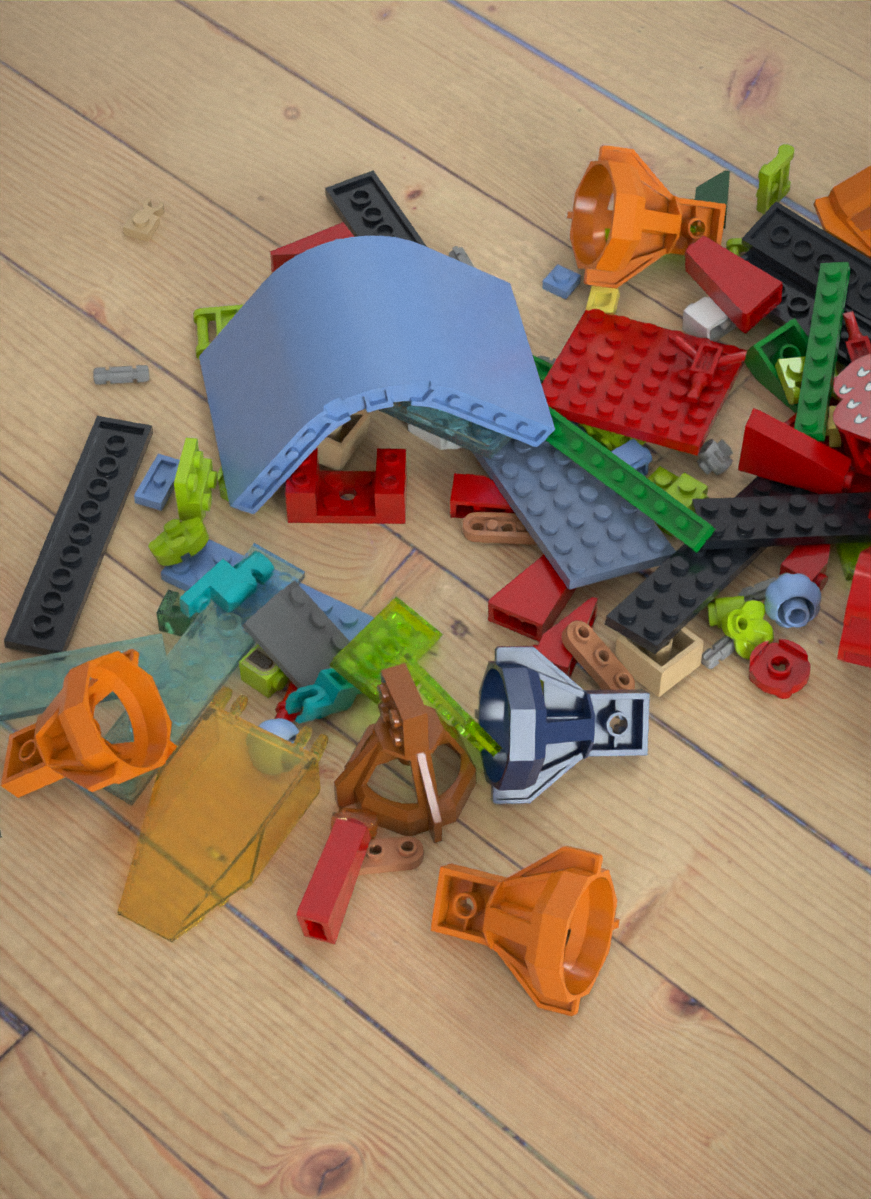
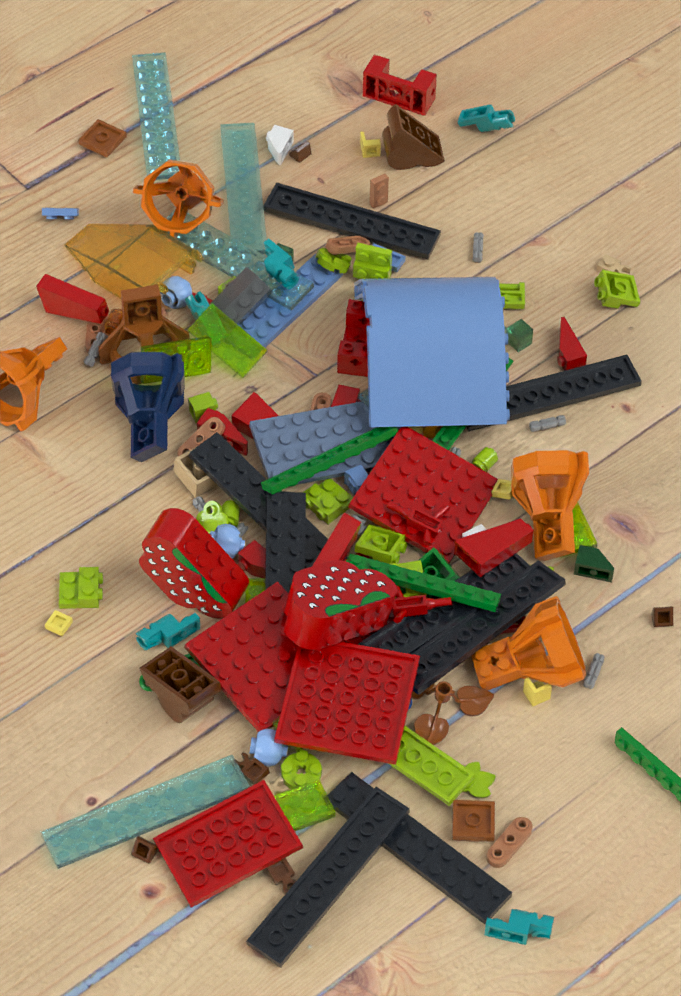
camera: 95 degrees right, 0 degrees up
(24, 492) = (379, 190): none -> nougat plate
(99, 953) = (68, 213): none -> medium blue plate
(150, 521) = (344, 244): none -> nougat plate
(198, 207) = (616, 289): none -> lime plate
(426, 839) = (93, 351): none -> light grey axle
(554, 326) = (485, 459): none -> lime brick
(737, 410) = (381, 544): none -> lime plate
(774, 179) = (596, 593): lime plate -> none
(776, 133) = (662, 616): none -> reddish brown slope

